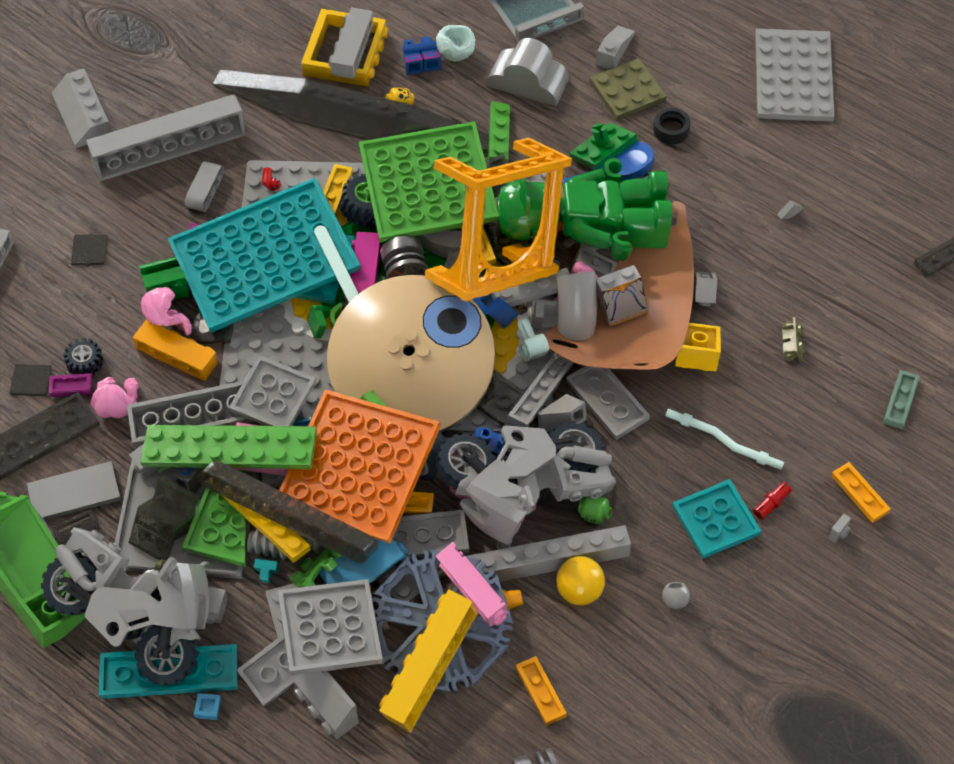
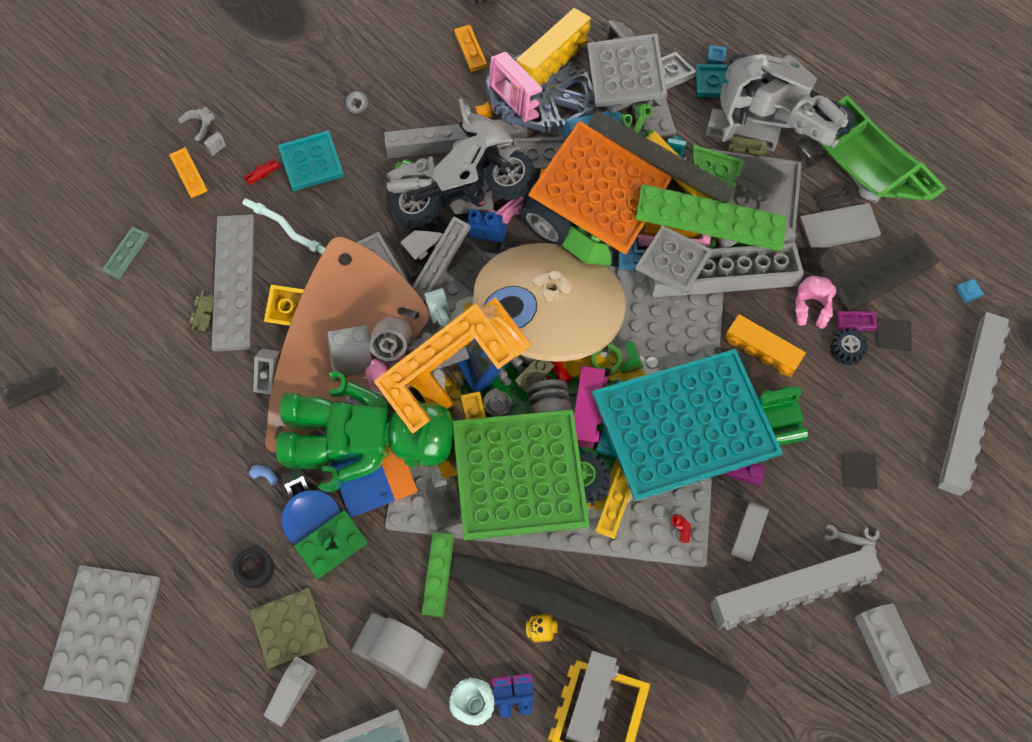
camera: 175 degrees left, 10 degrees up
(94, 188) = (867, 541): none -> light grey bar
(109, 443) = (817, 260): none -> clear smoke slope
(156, 310) = (784, 368): bright pink hair -> none
(336, 263) = (614, 391): light aqua piece -> none
(580, 580) = (428, 112): yellow piece -> none
(689, 201) = (261, 470): none -> medium blue arm
(769, 379) = (233, 283): none -> light grey plate
(789, 210) = (161, 449): light grey tile -> none
(867, 566) = (202, 115): none -> light grey helmet

